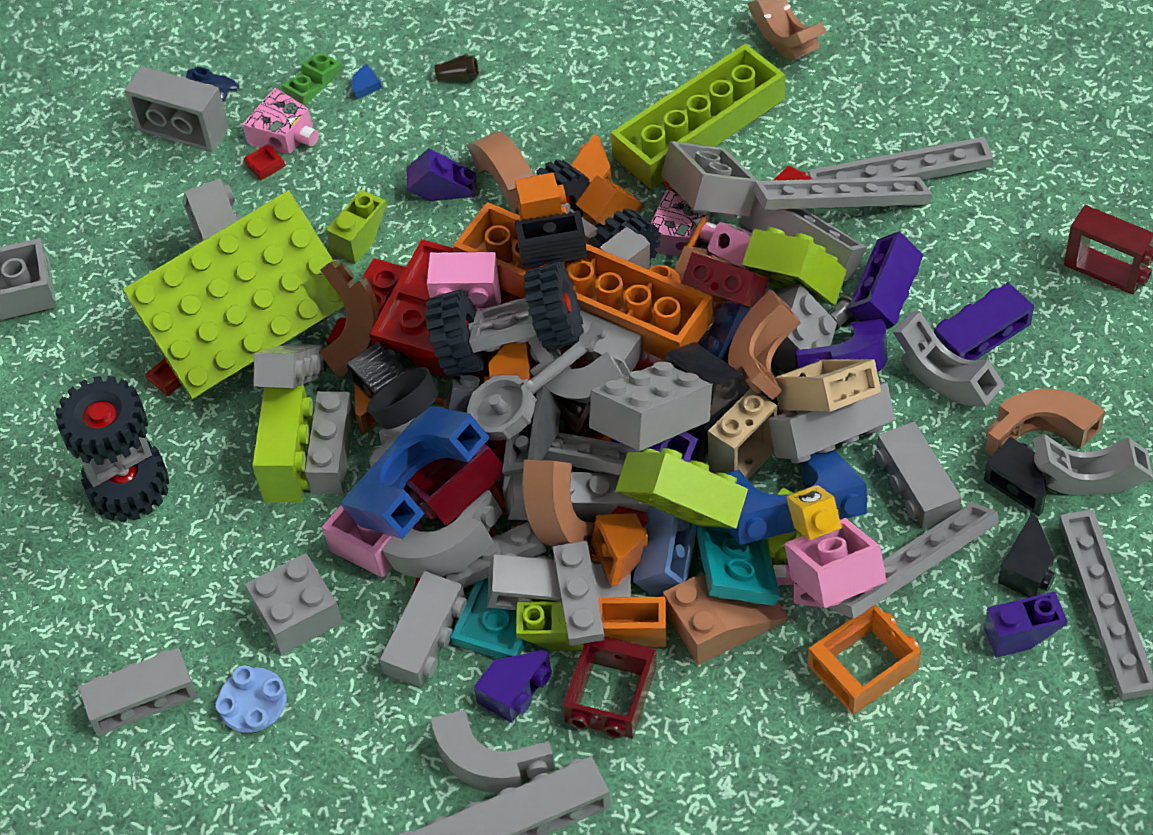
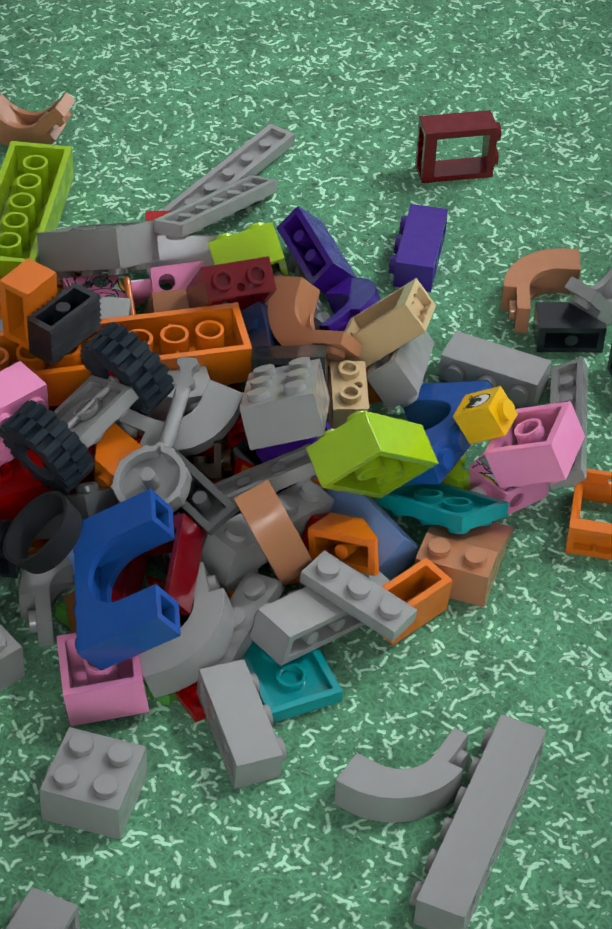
camera: 50 degrees left, 10 degrees down
(251, 699) = (141, 889): light blue dish -> none
(511, 682) = (362, 715): dark purple slope -> none
(544, 625) = (349, 645): lime slope -> none
(619, 656) = (444, 628): dark red window -> none
(943, 371) = (450, 289): light grey arch -> none

